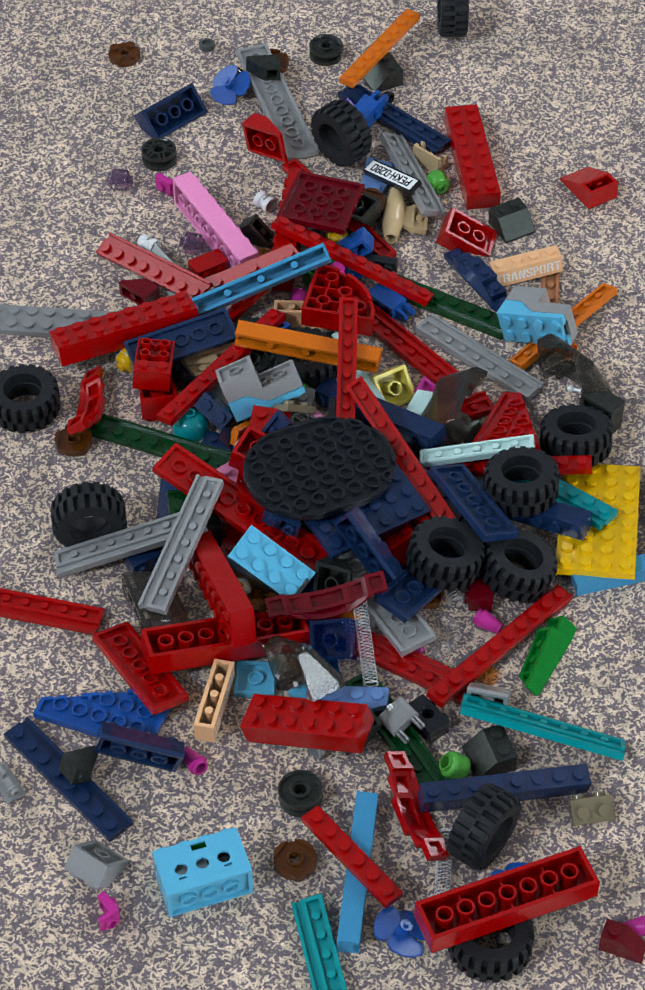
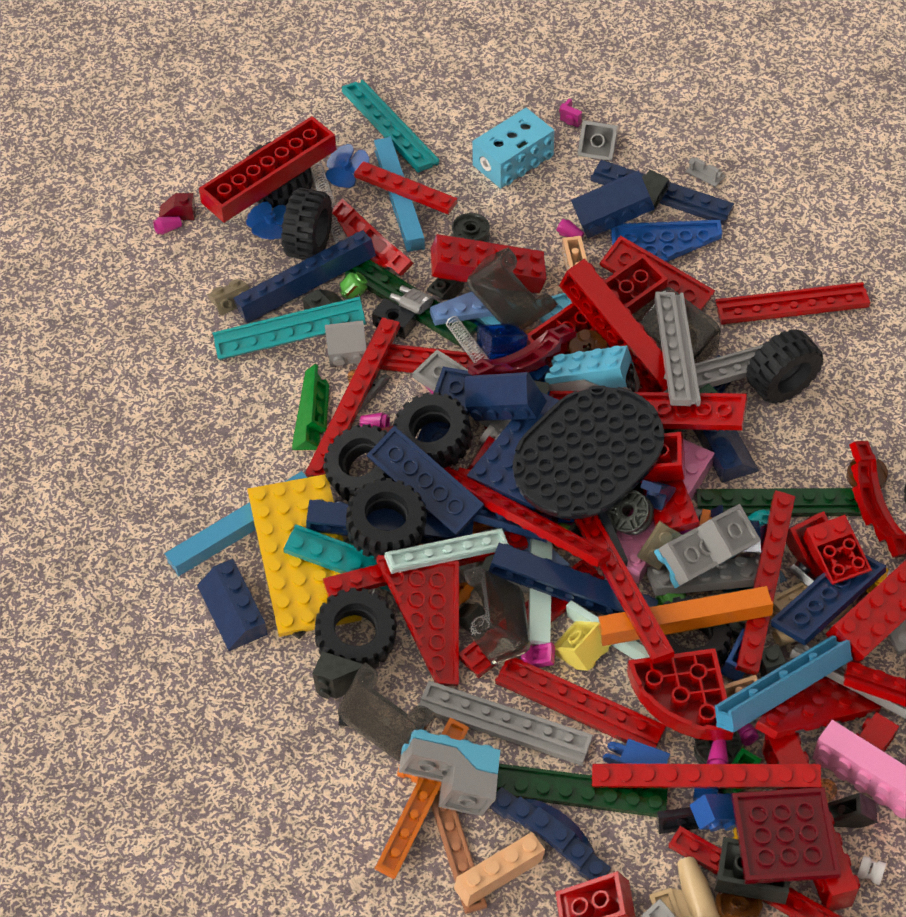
camera: 160 degrees right, 5 degrees up
(295, 871) = (457, 181): reddish brown plate -> none

